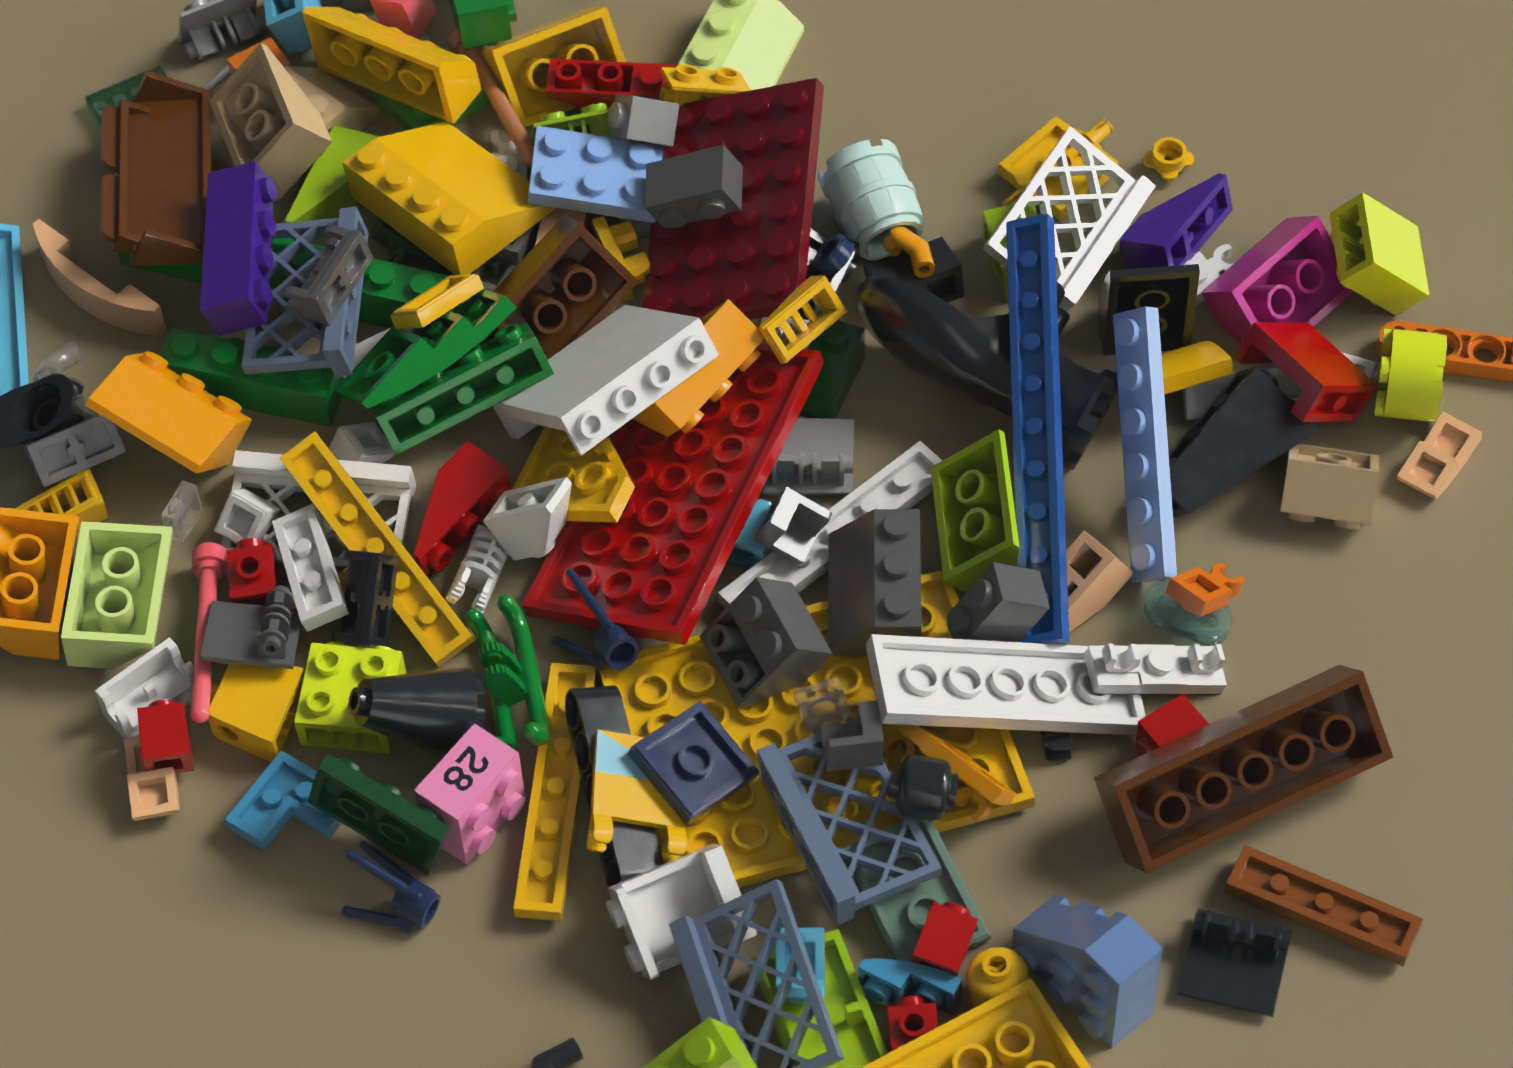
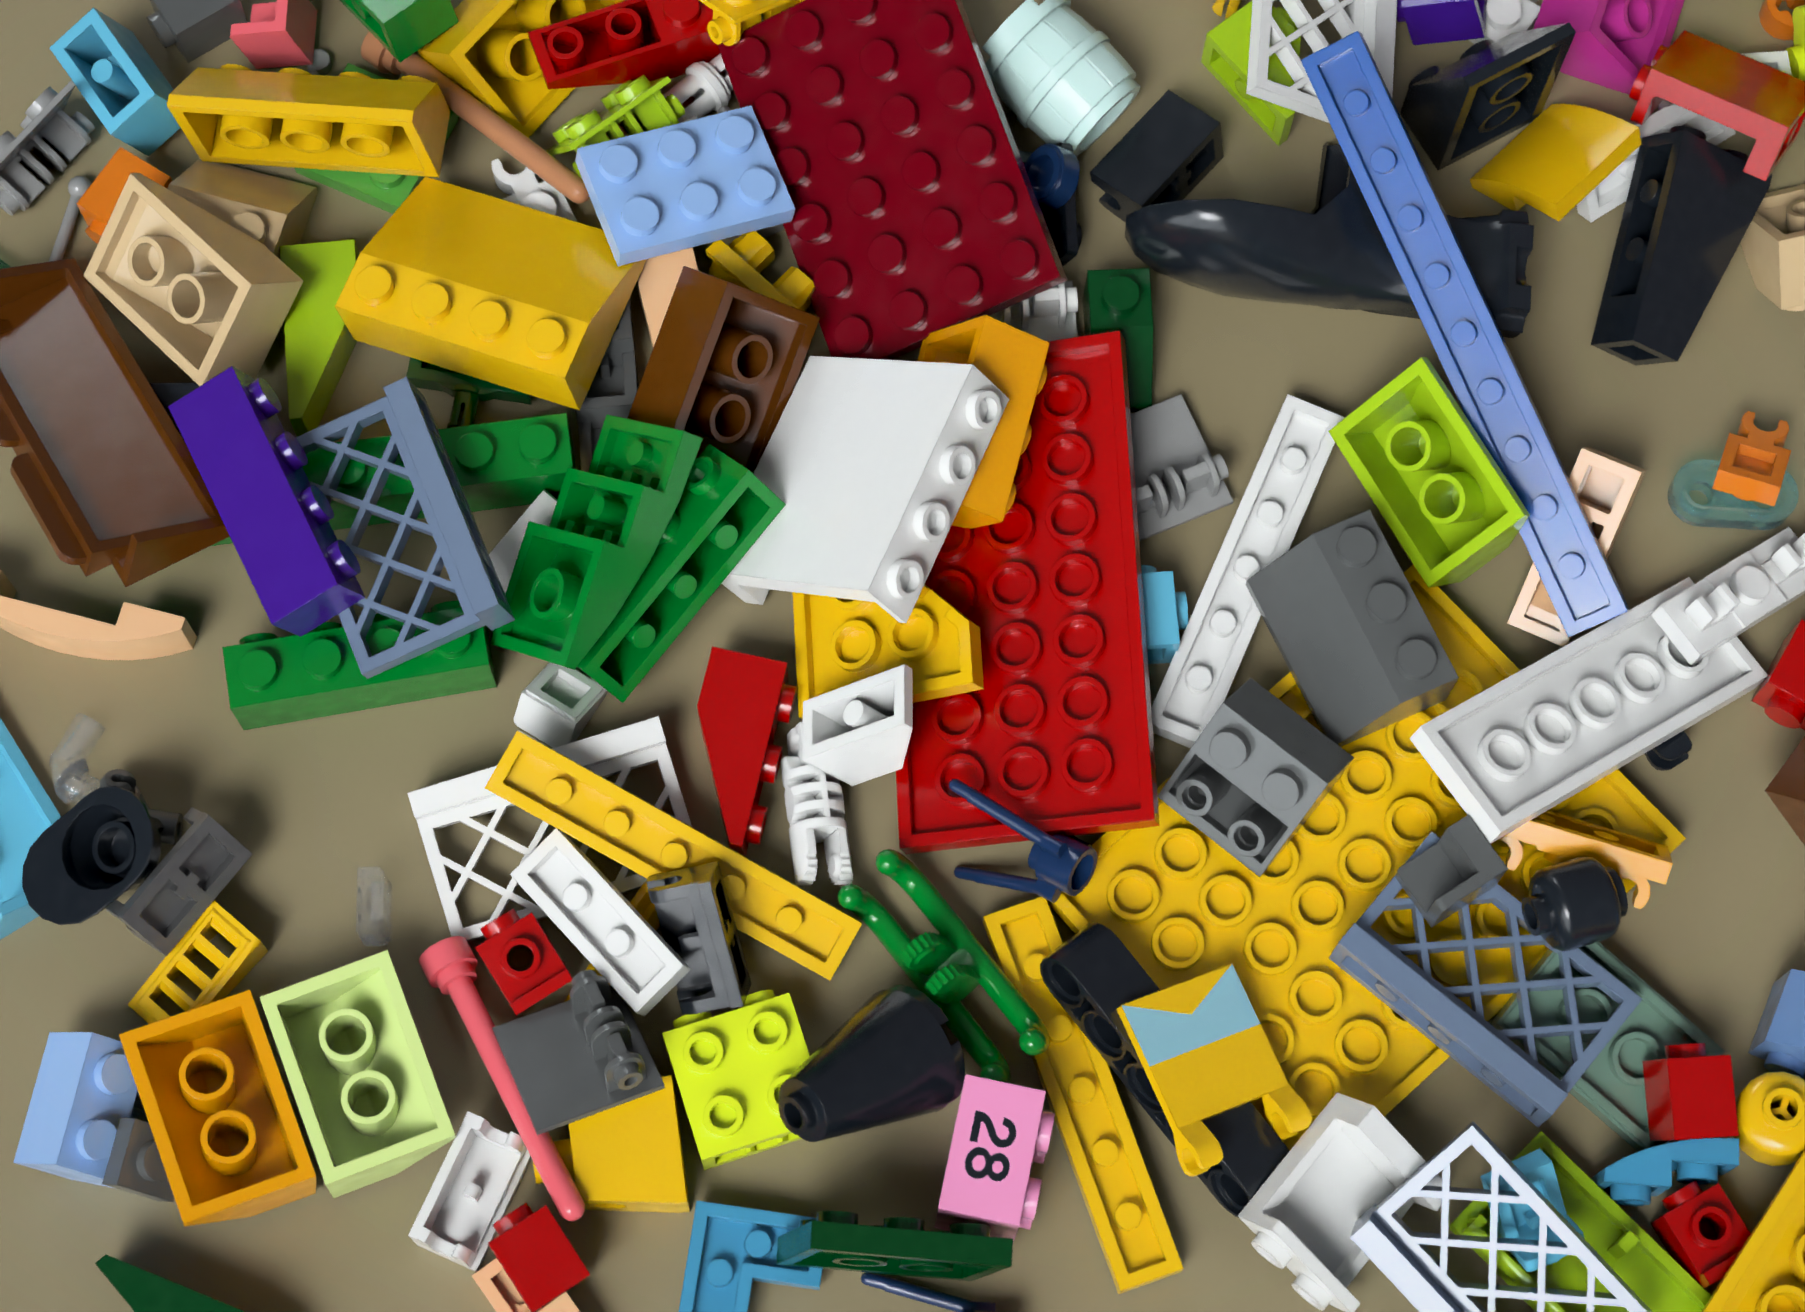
camera: 30 degrees left, 15 degrees up
(171, 412) = (291, 779): light orange slope -> none
(245, 516) = (468, 880): white slope -> none
(331, 277) = (431, 501): flat silver hinge -> none
(436, 301) = (579, 467): yellow tile -> none
(643, 120) = (715, 82): light grey brick -> none
(693, 187) = (837, 159): dark grey brick -> none
(693, 762) = (1256, 990): dark blue tile -> none
(792, 525) = (1199, 594): dark grey panel -> none
(822, 705) = (1366, 829): clear tile -> none
(829, 309) = (1095, 267): yellow slope -> none
(917, 248) = (1152, 122): light orange arm -> none
(999, 605) = (1533, 609): dark grey brick -> none
(1144, 445) = (1599, 295): light blue plate -> none

